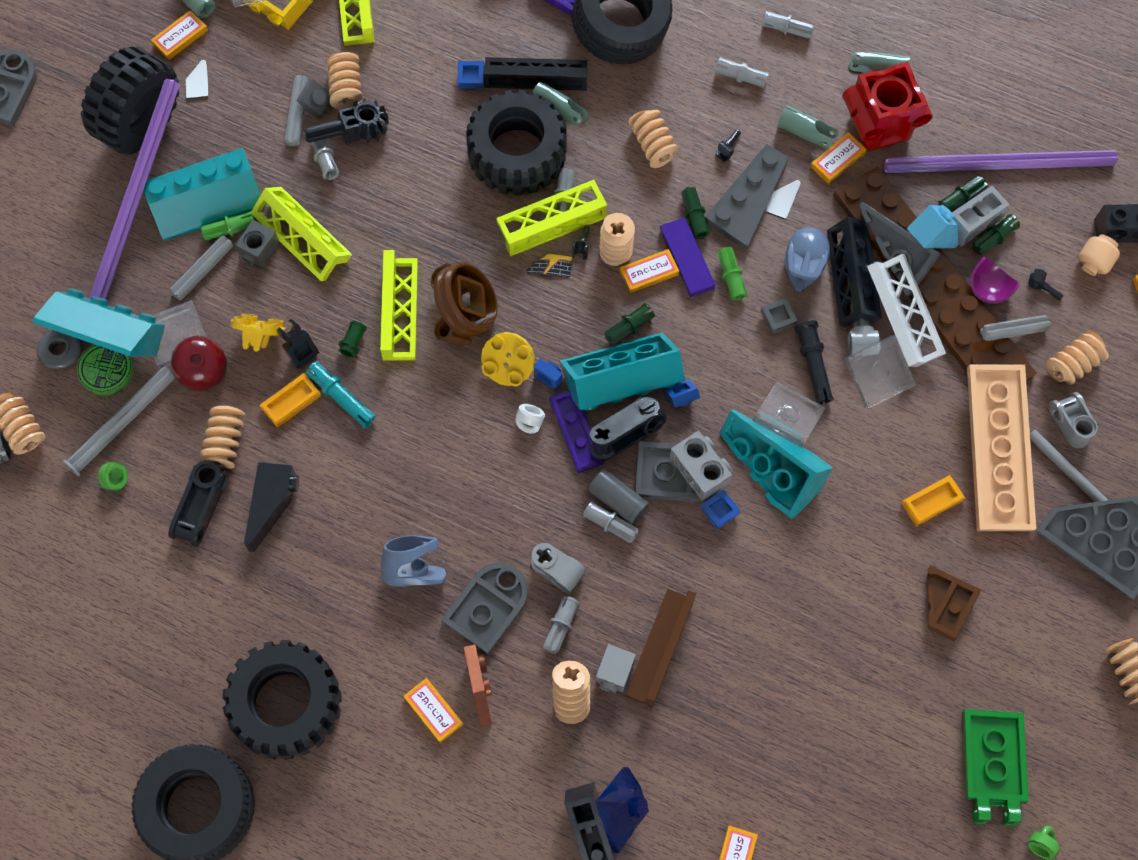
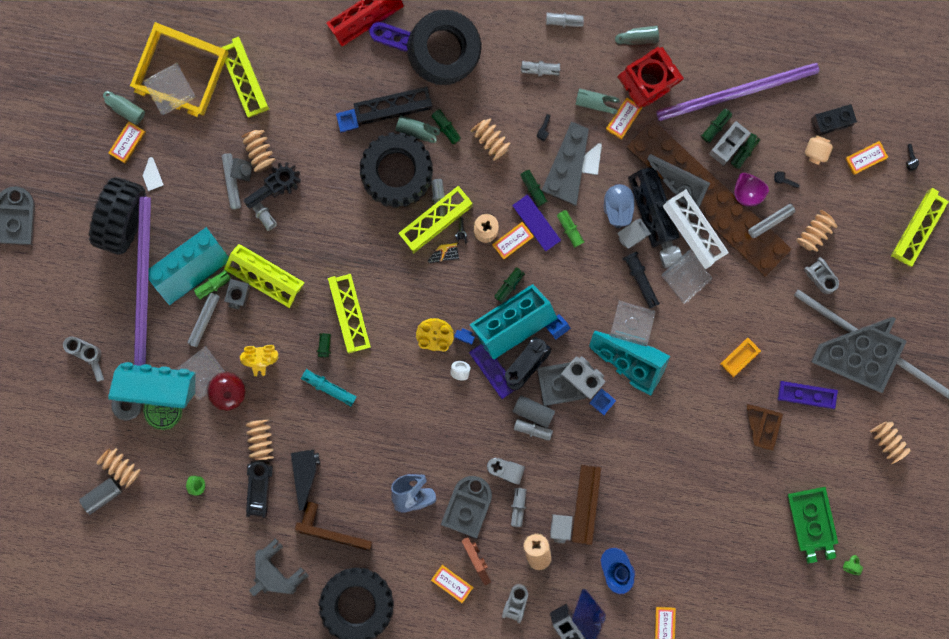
camera: 20 degrees left, 15 degrees up
(25, 265) = (81, 352): none -> light grey beam
(119, 420) = (186, 445): light grey axle -> none
(172, 630) = (269, 577): none -> dark grey connector
(250, 577) = (306, 527): none -> reddish brown piece
(290, 400) = (295, 399): light orange tile -> none
(298, 344) = (289, 361): black plate -> none
(458, 322) = (392, 320): reddish brown piece -> none
(517, 764) = (515, 604): none -> light grey piece
(598, 111) = (446, 126): none -> dark green axle
(683, 751) = (617, 570): none -> blue piece
(778, 316) = (609, 252): dark grey plate -> none
(817, 298) = (633, 233): none -> light grey brick
(935, 228) = (702, 169): medium azure slope -> none
(1001, 448) = (778, 311): light nougat plate -> none
(1021, 577) = (807, 395): none -> dark purple tile

